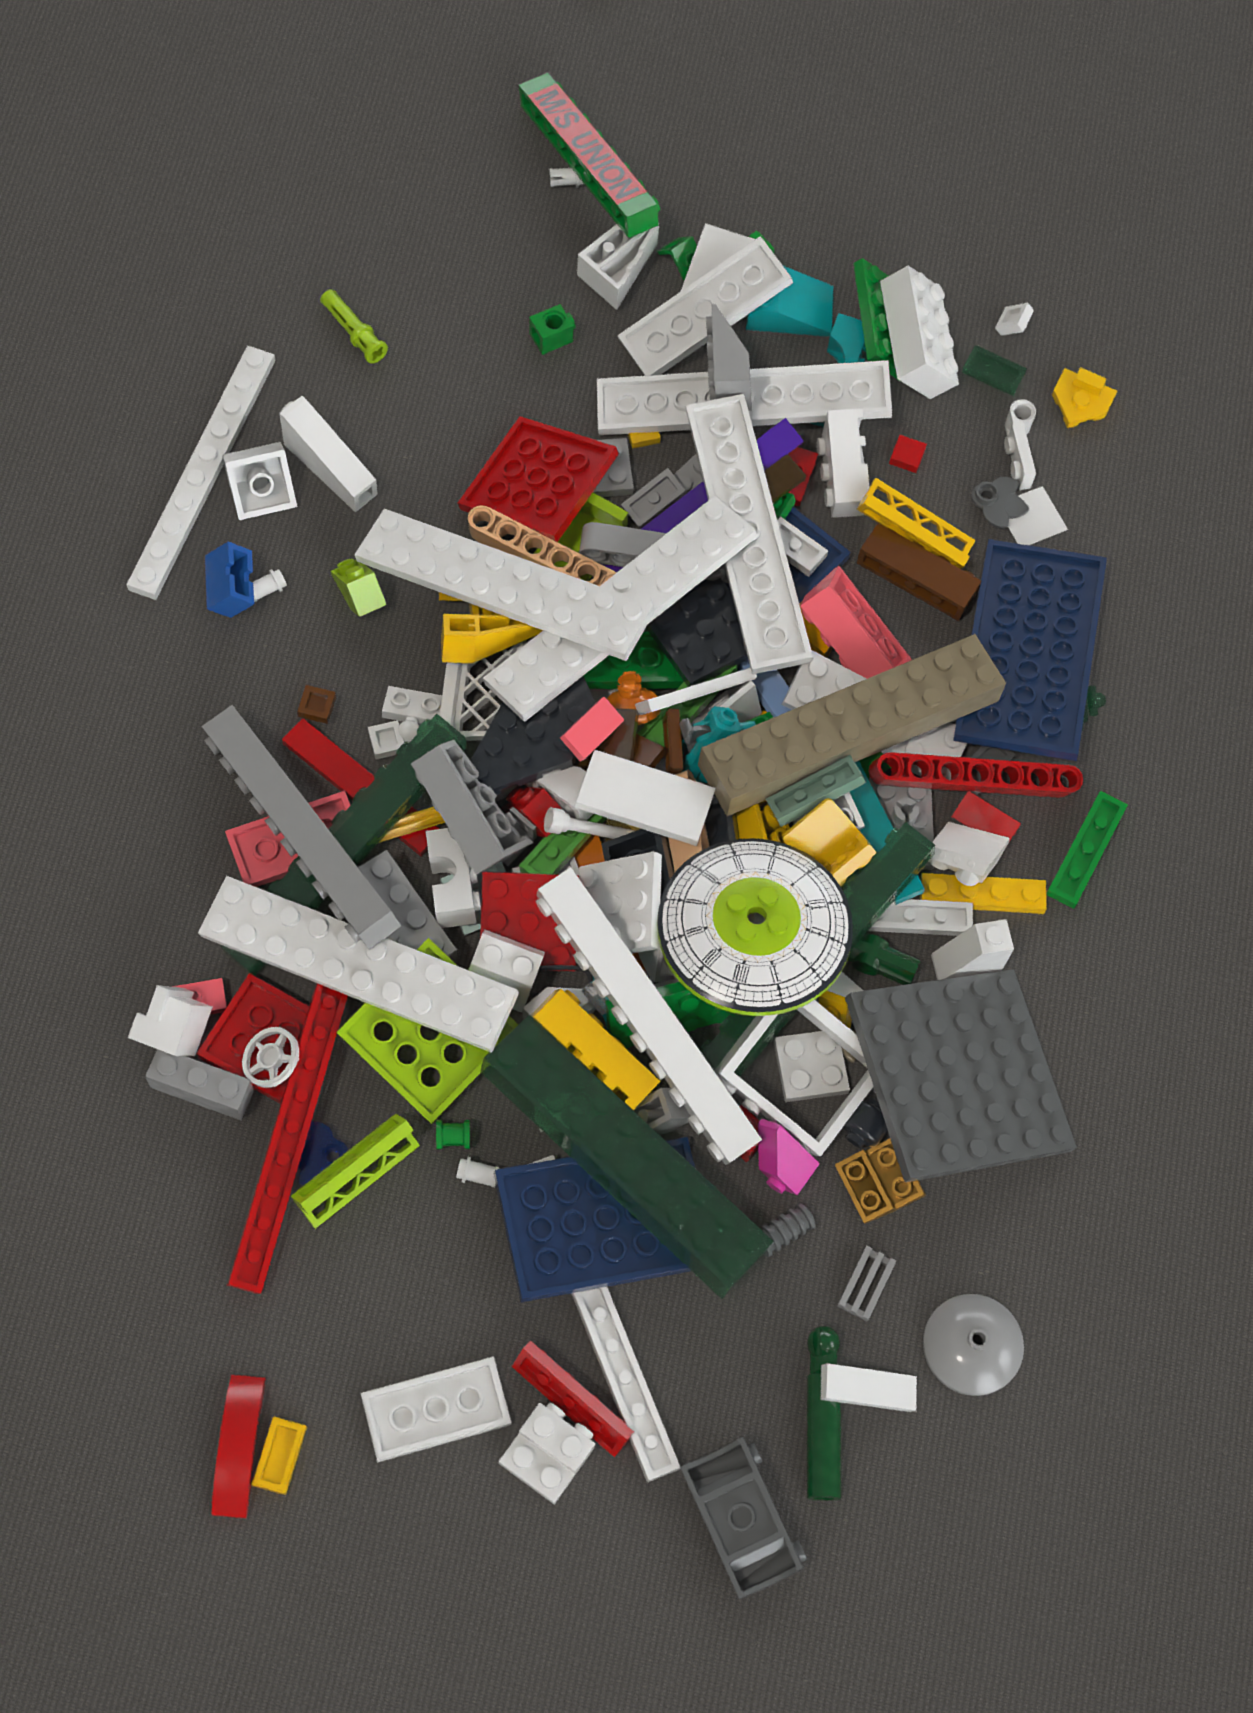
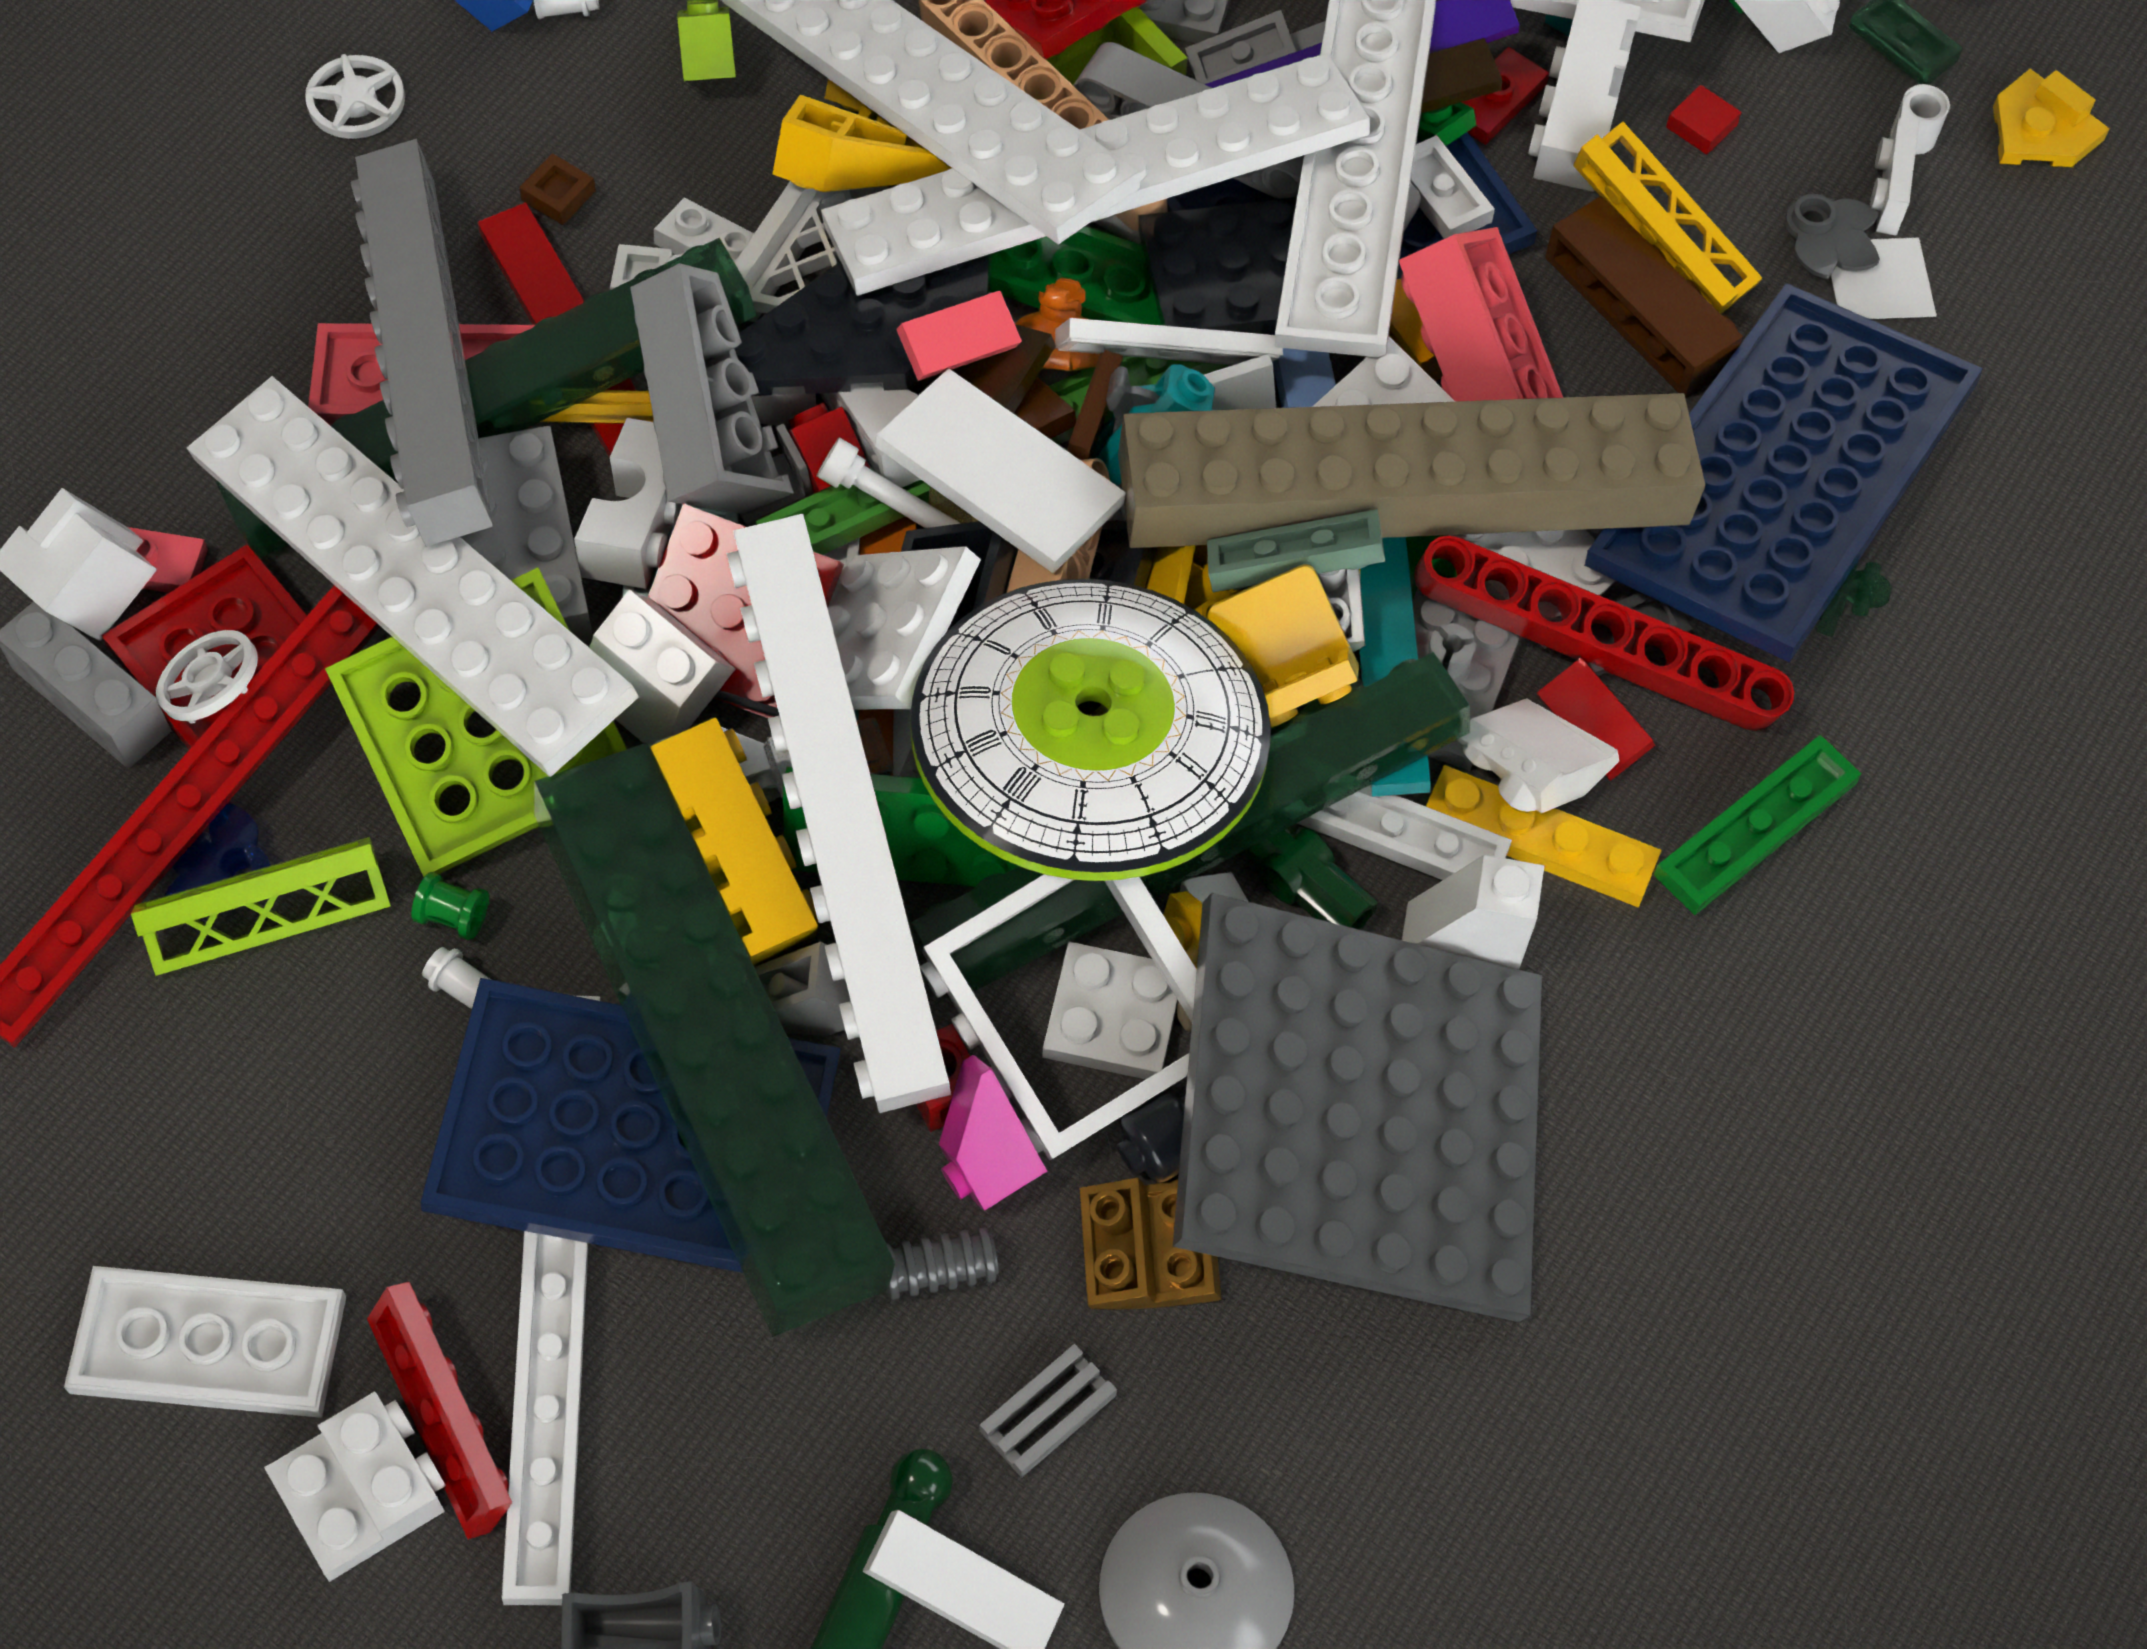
camera: 25 degrees right, 5 degrees down
(174, 684) = (355, 96): none -> white wheel

